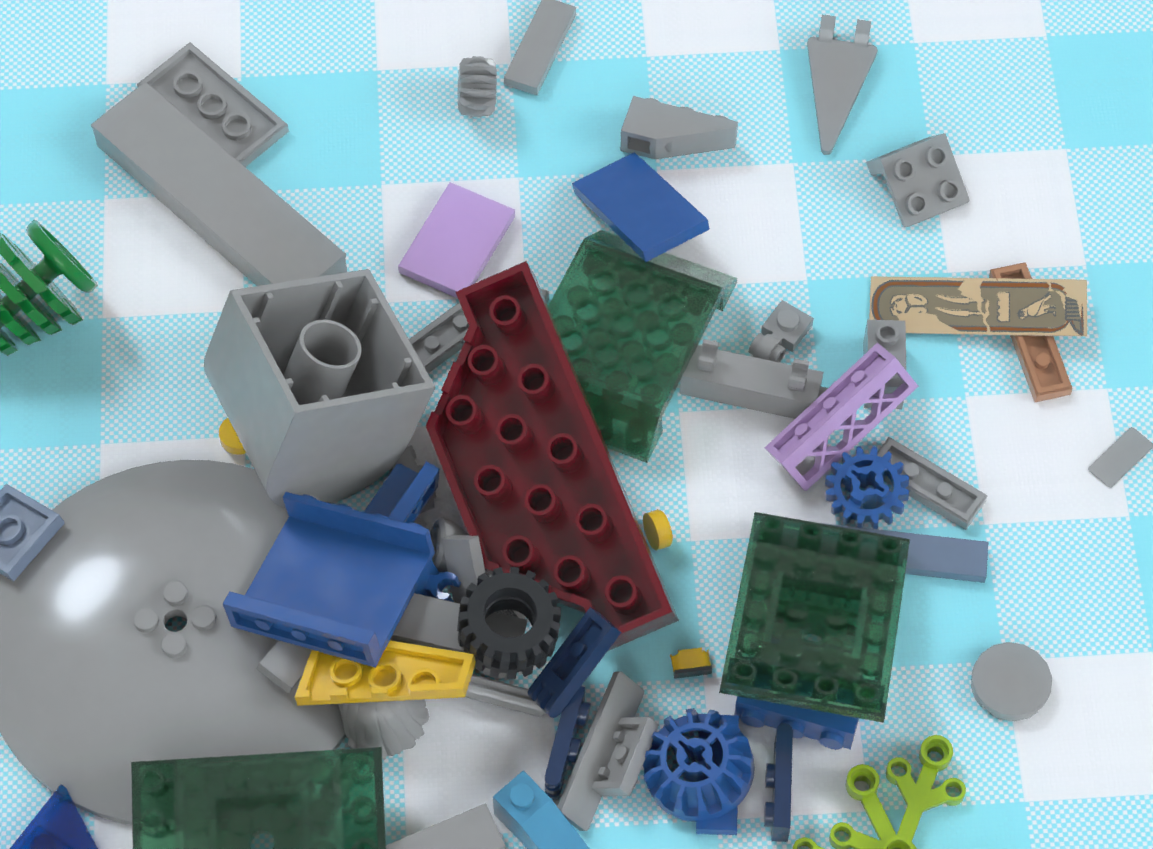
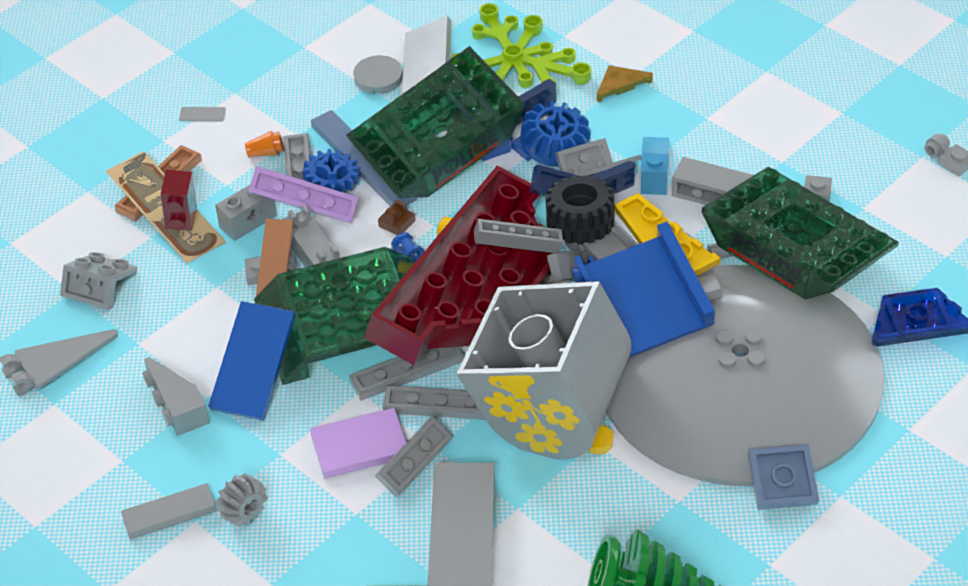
camera: 130 degrees left, 15 degrees down
(386, 259) = (413, 456): none -> light grey tile
(529, 520) = (518, 236): none -> light grey piece
(668, 471) = (408, 246): none -> blue bush
(732, 504) = (396, 218): none -> reddish brown tile
(768, 324) = (275, 251): none -> nougat tile
(944, 290) = (178, 200): none -> dark red brick
(976, 741) = (425, 51): none -> tile
(985, 465) = (265, 145): none -> orange cone

